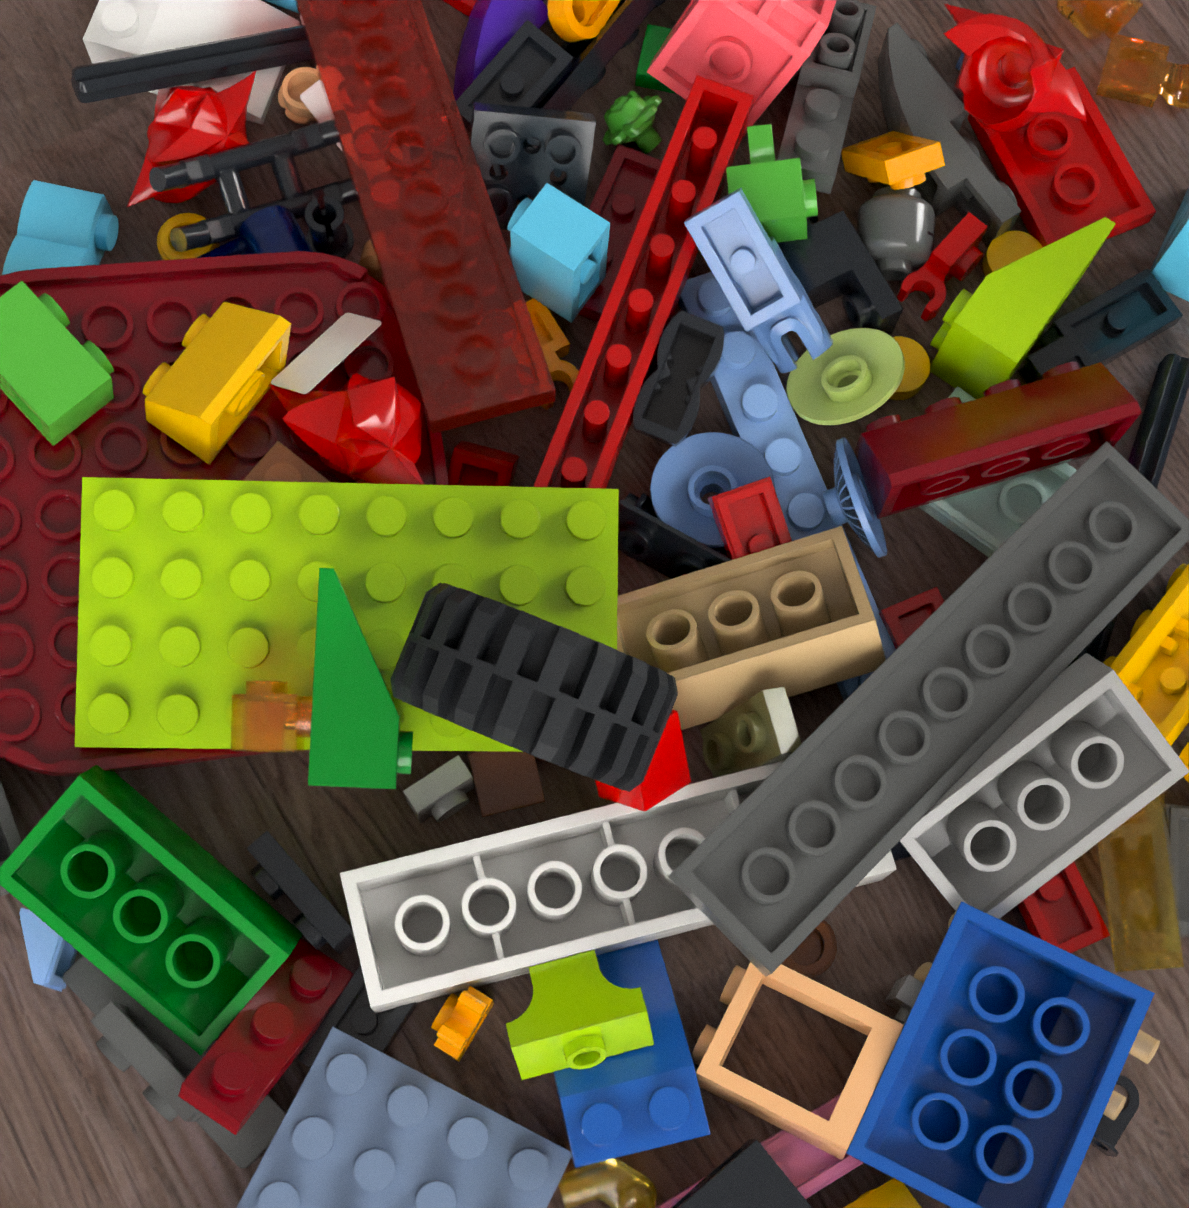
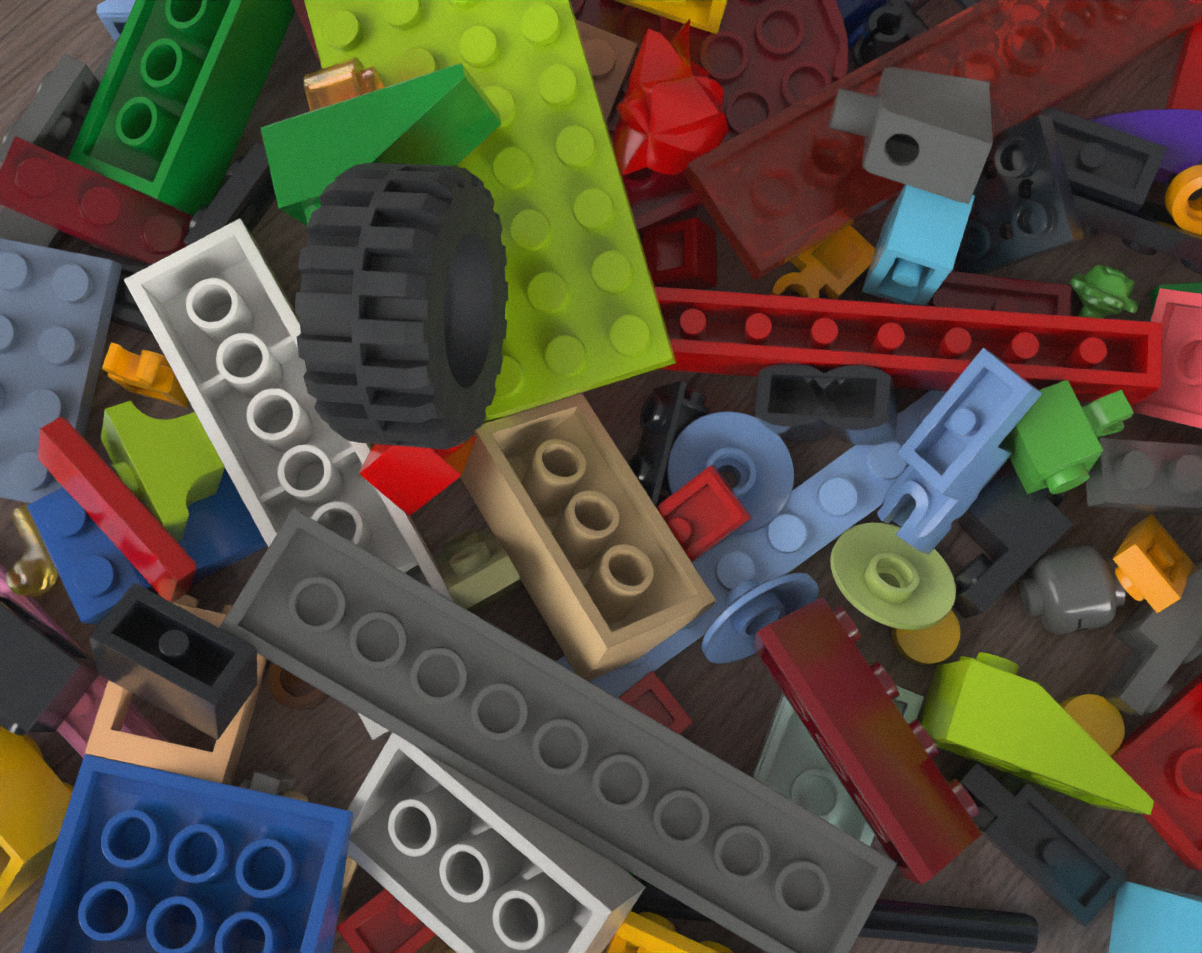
camera: 80 degrees right, 5 degrees up
(325, 353) = (738, 59): white sticker -> none
(473, 204) = (921, 129): none -> dark grey torso
(615, 1063) = (116, 509): none -> red tile
(788, 1025) = (175, 660): none -> black brick
(952, 257) = (1065, 656): red plate -> none

